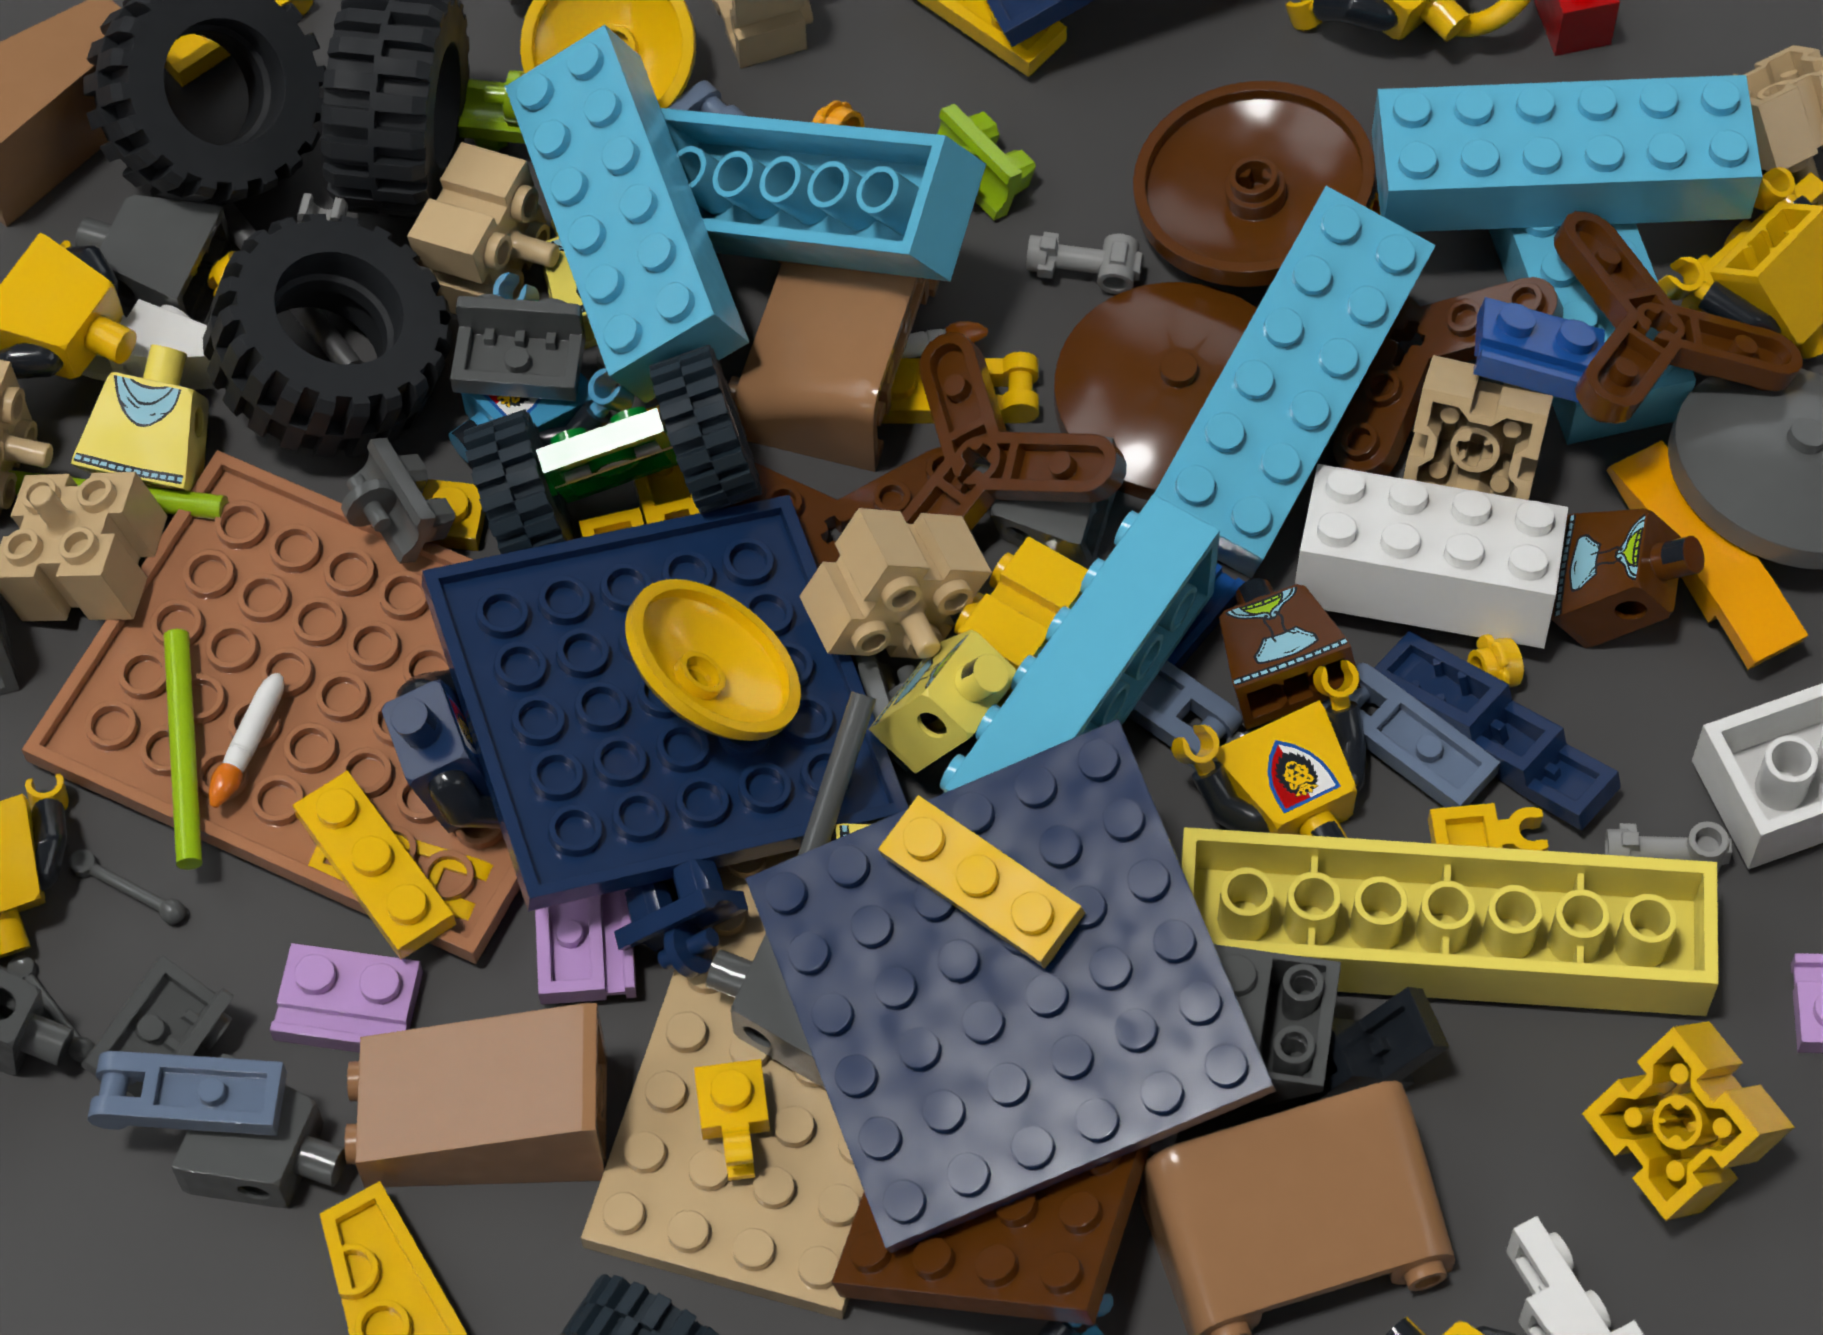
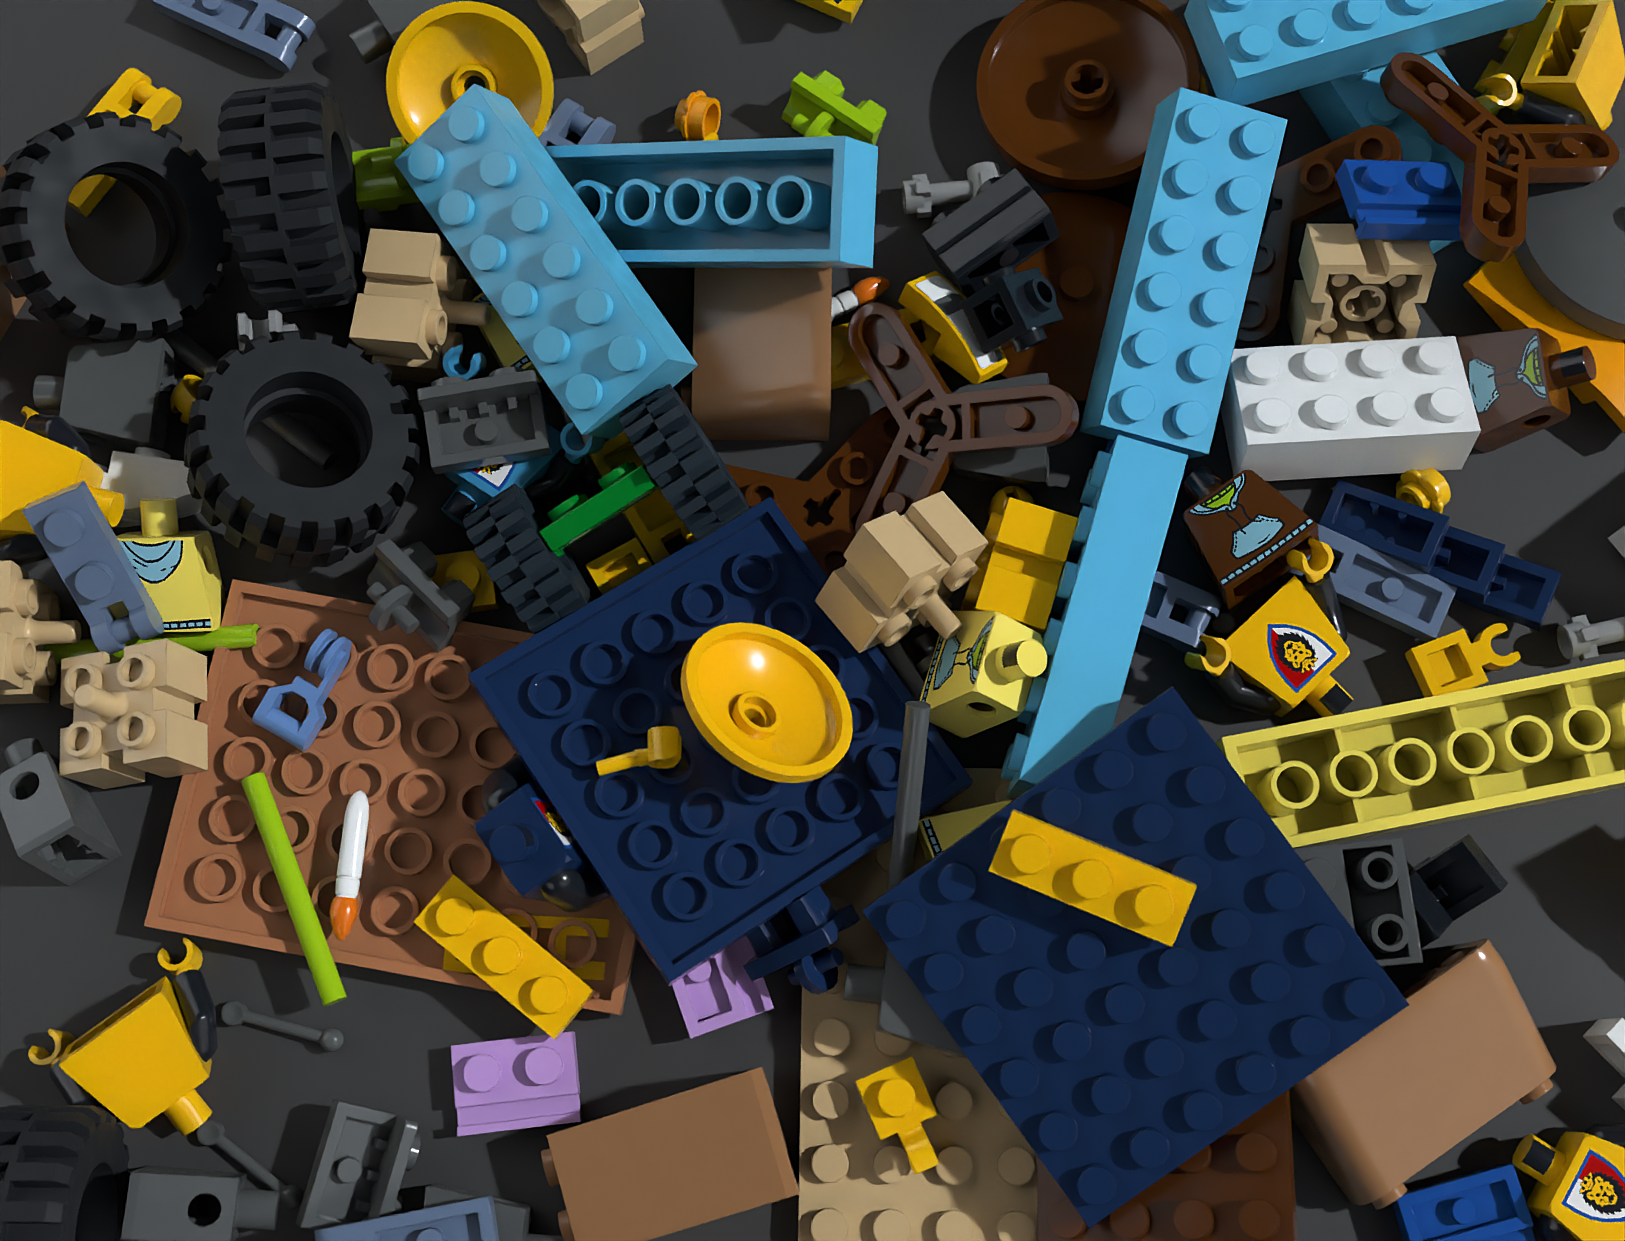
camera: 20 degrees left, 15 degrees up
(87, 388) = (93, 566): none -> sand blue plate
(285, 537) = (329, 658): none -> medium blue piece
(592, 689) = (662, 752): none -> yellow hand
(1041, 385) = (938, 305): none -> yellow slope
(1095, 371) = (1012, 310): none -> black brick
(1101, 300) = (990, 232): none -> black brick

